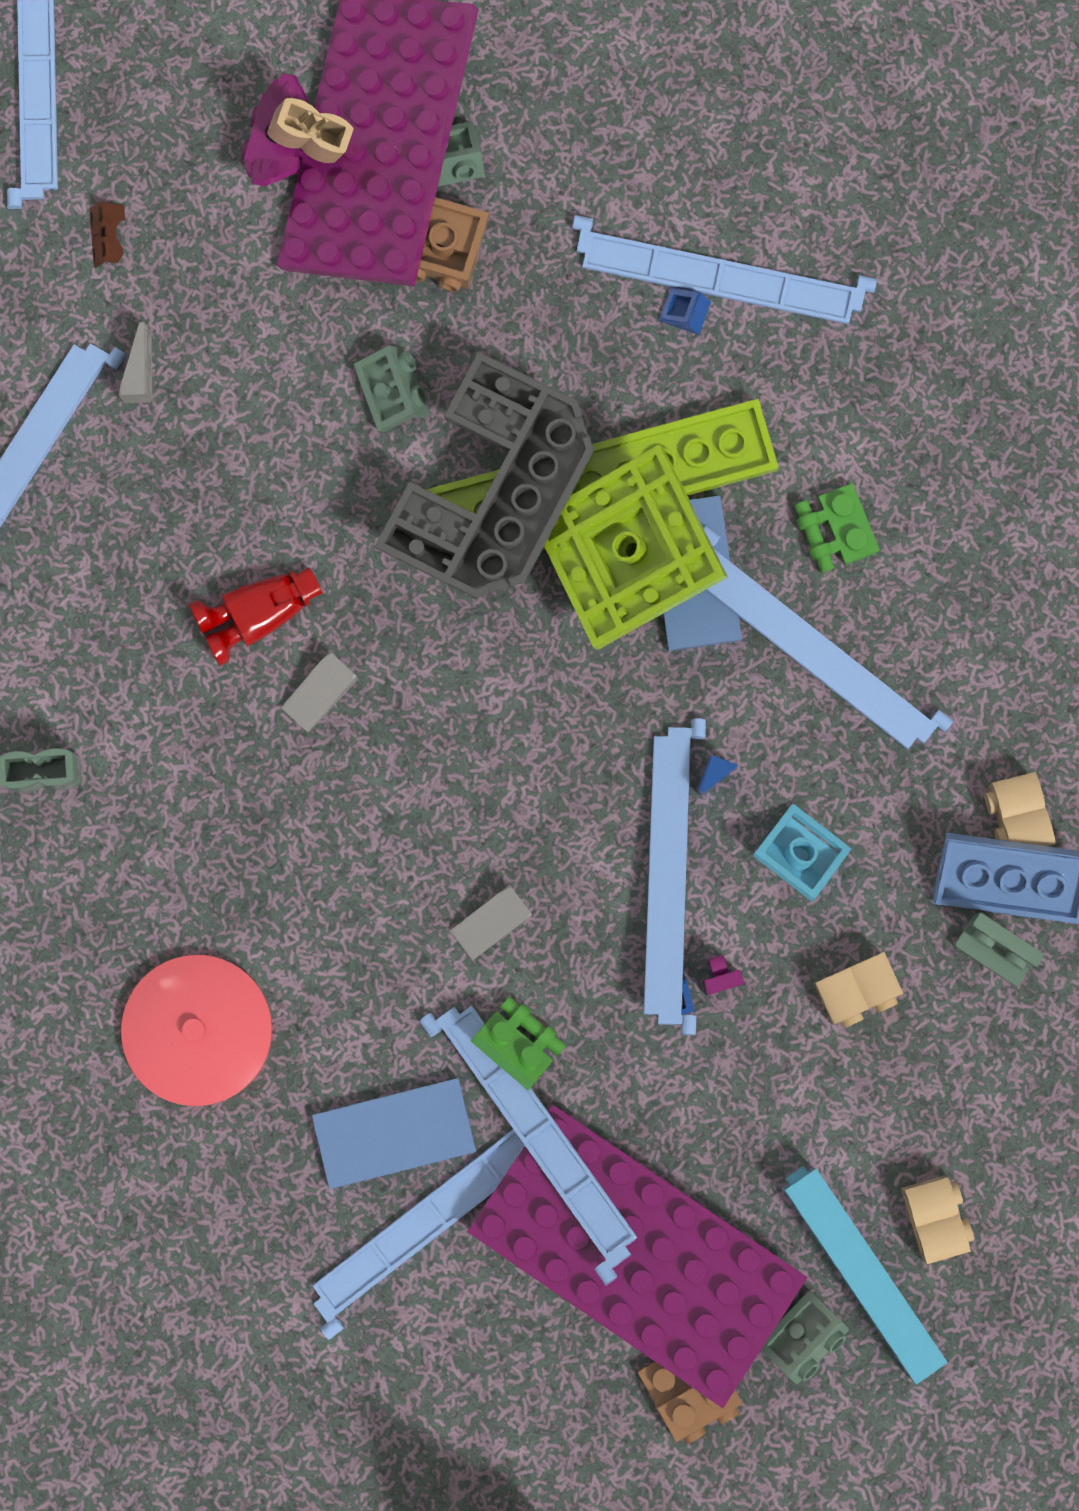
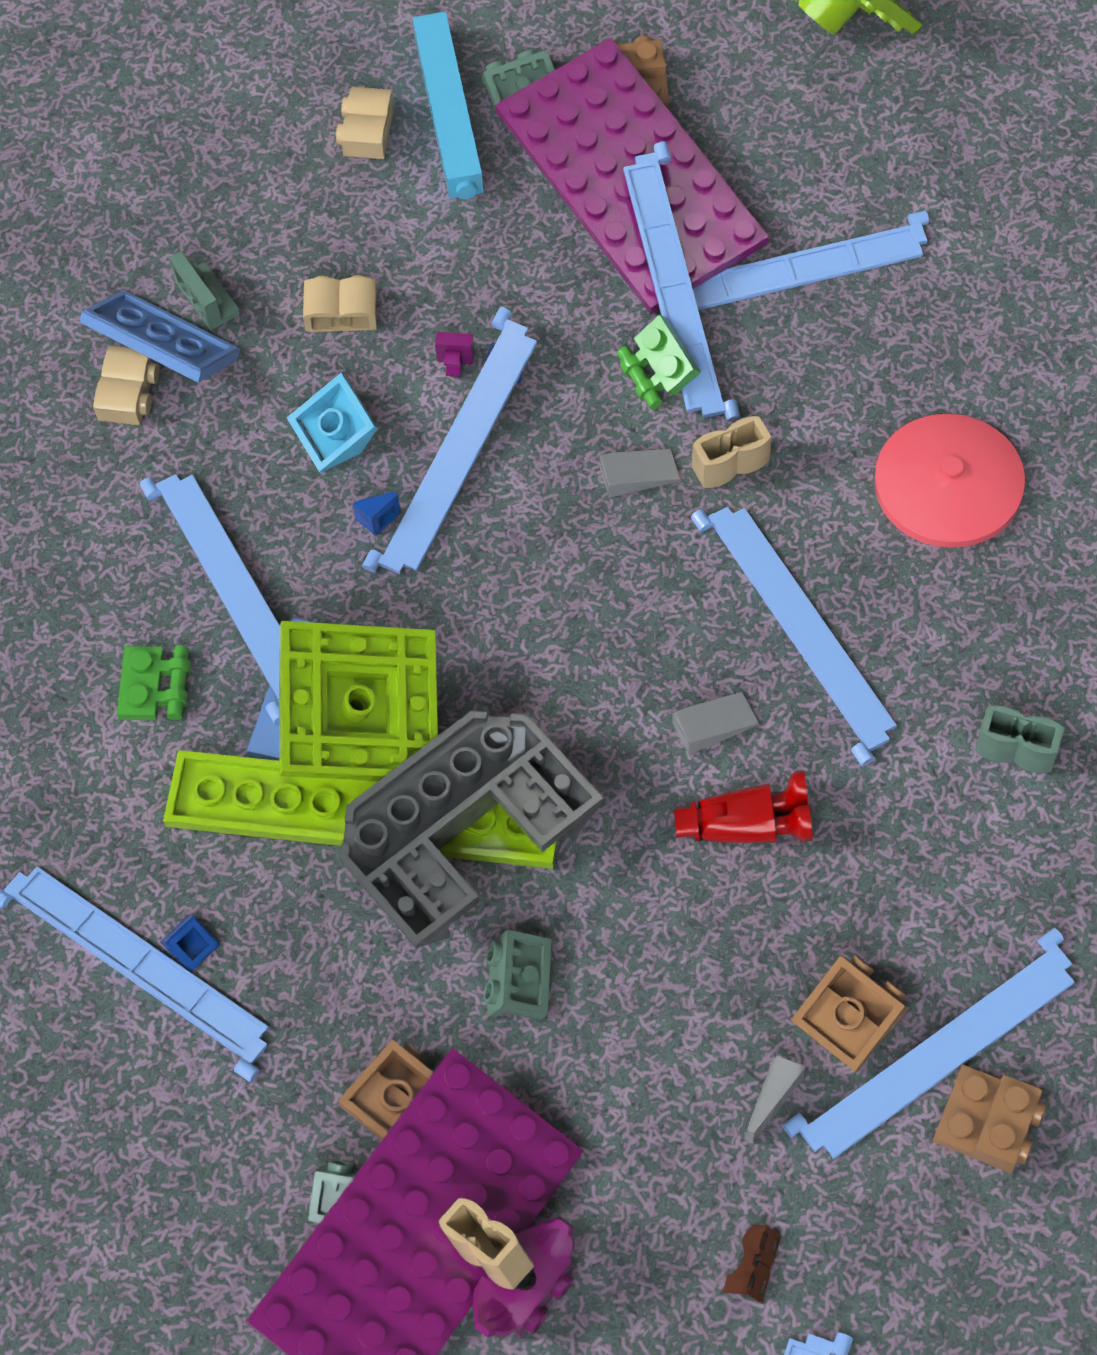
camera: 155 degrees left, 20 degrees down
(99, 466) = (851, 1011): none -> medium nougat plate
(280, 823) = (803, 627): none -> light blue piece
(394, 1133) = (801, 340): medium blue tile -> none
(400, 974) = (731, 452): none -> tan brick

